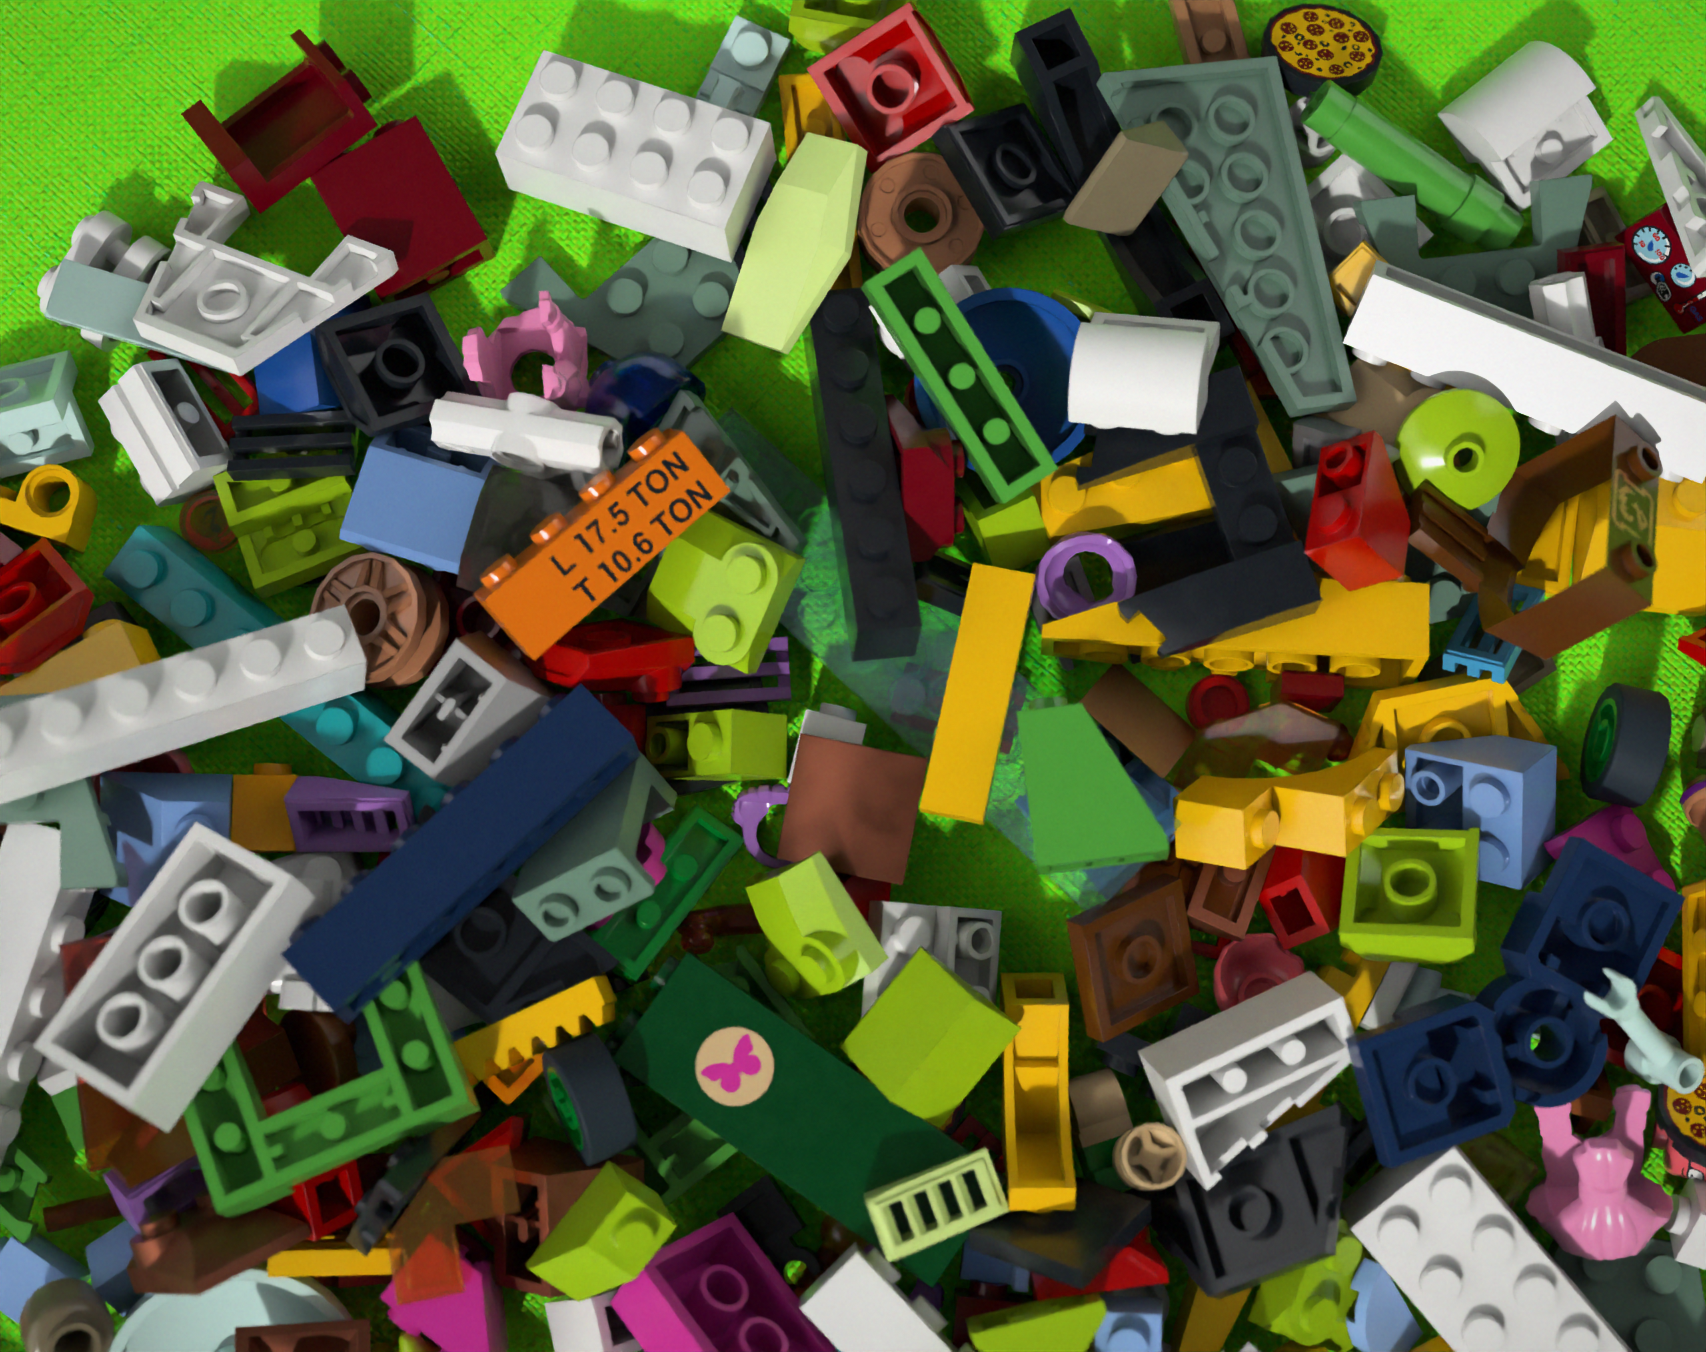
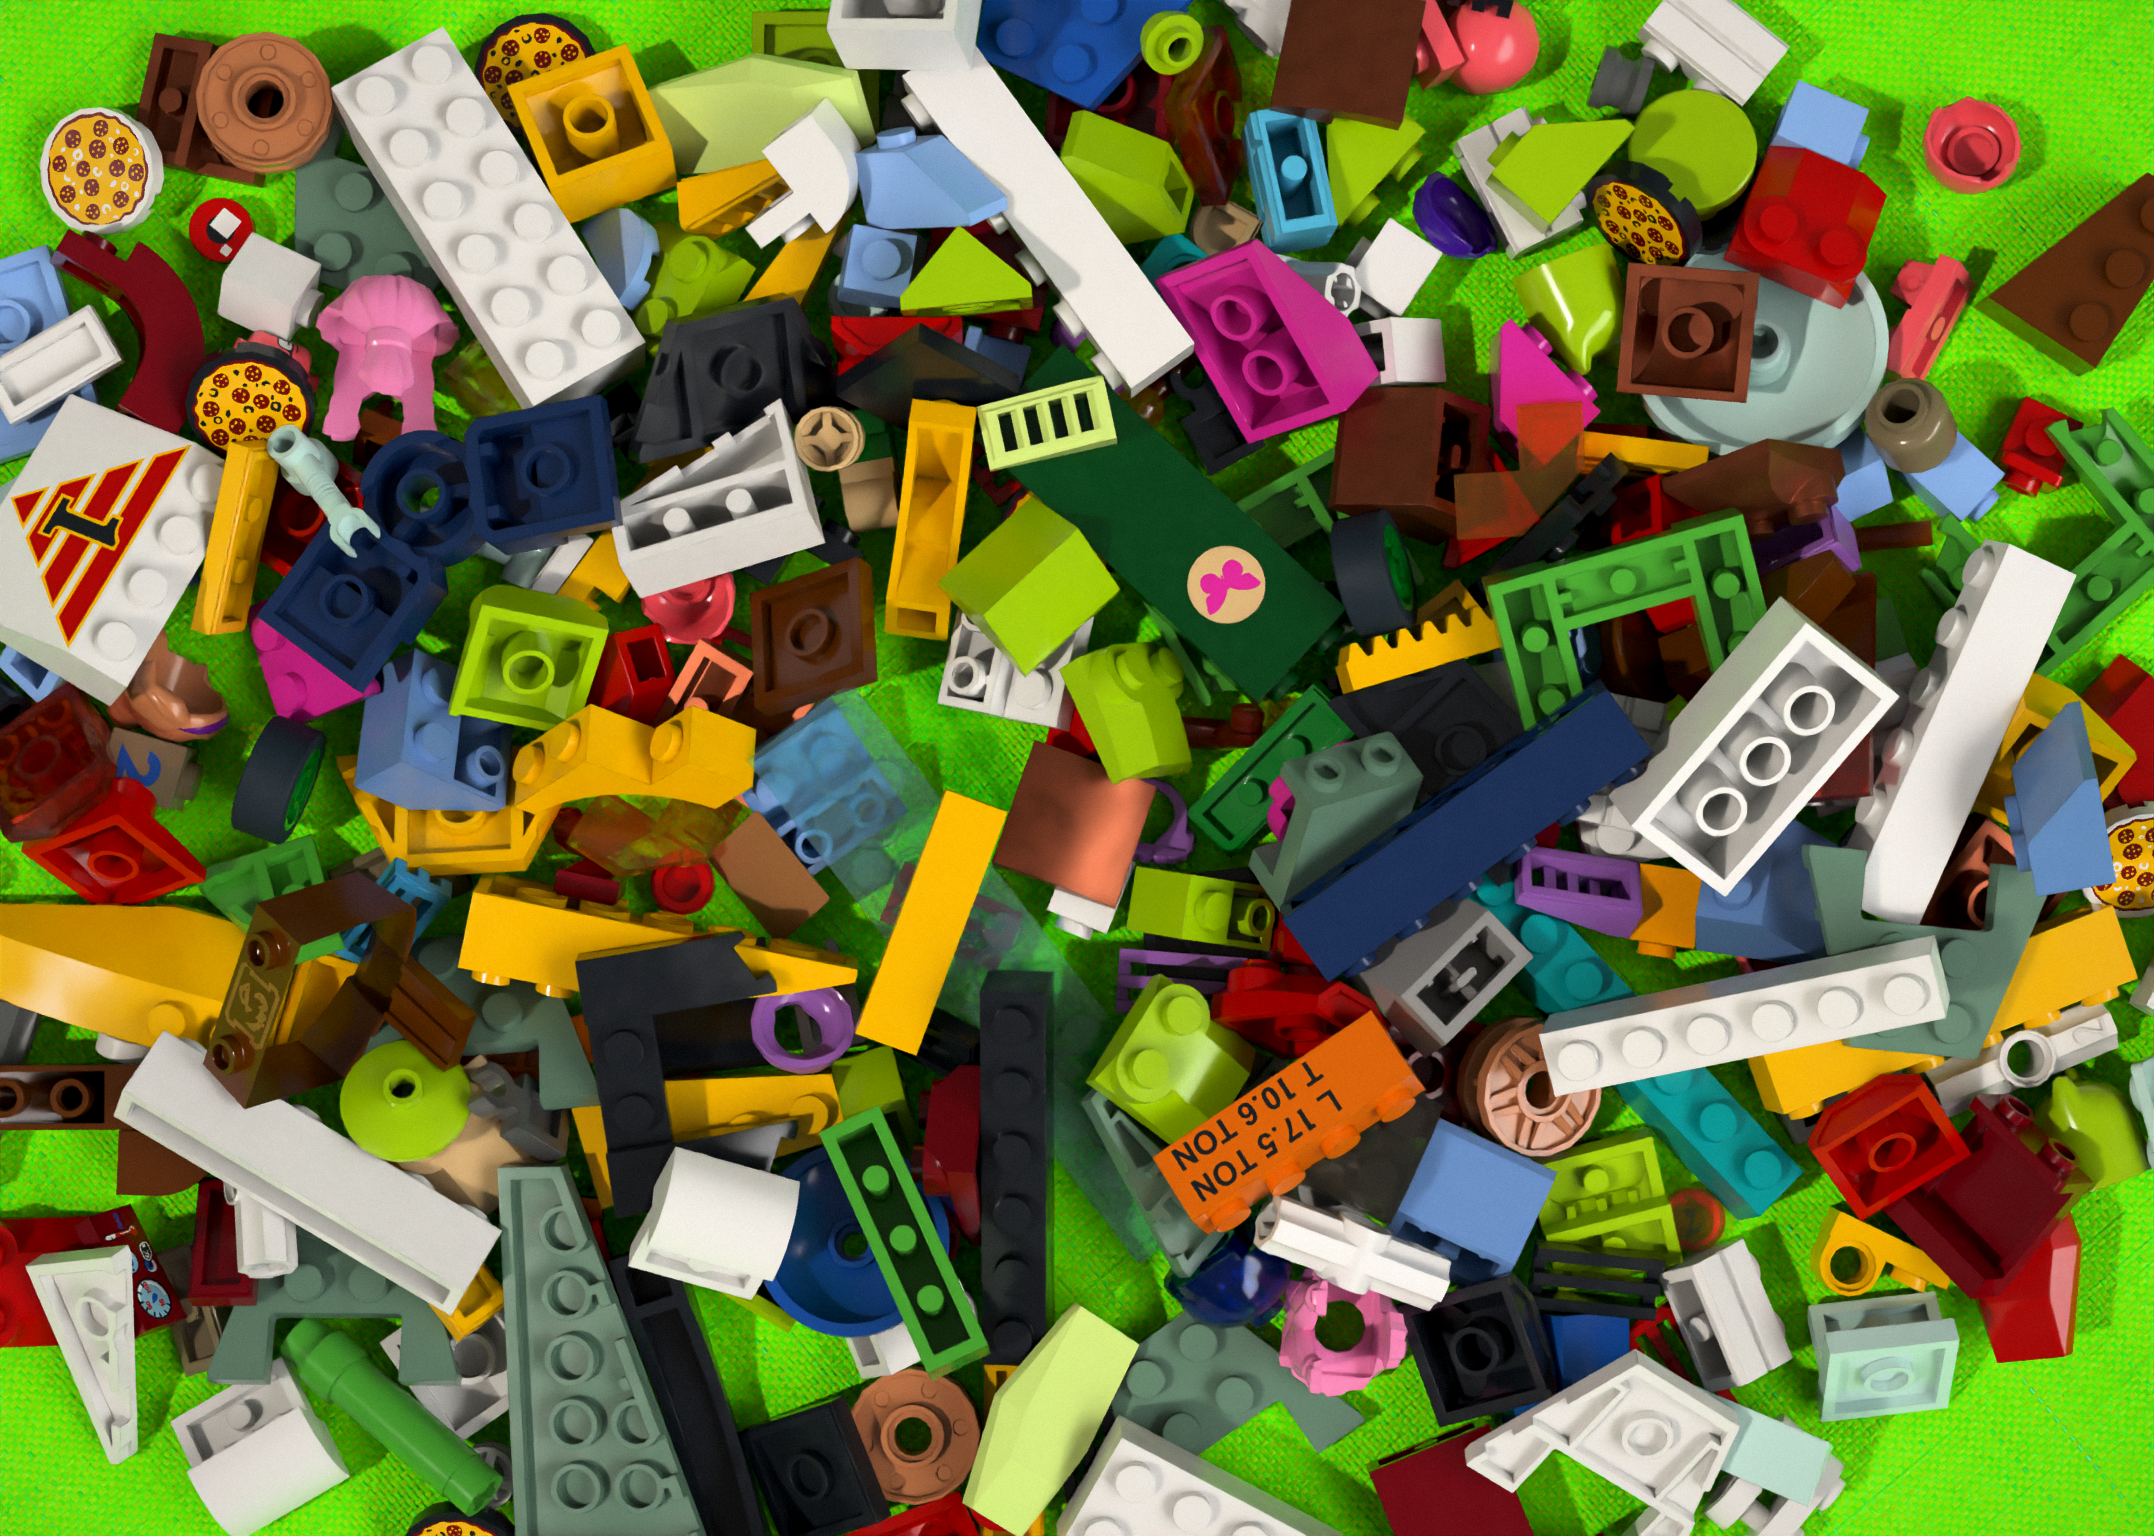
camera: 165 degrees left, 5 degrees up
(604, 1236) = (1376, 438): lime slope -> none
(1080, 795) = (848, 801): bright green slope -> none
(1128, 180) = (695, 1434): dark tan slope -> none
(1358, 514) = (521, 1045): red slope -> none
(1614, 652) = (263, 875): none -> bright green wing

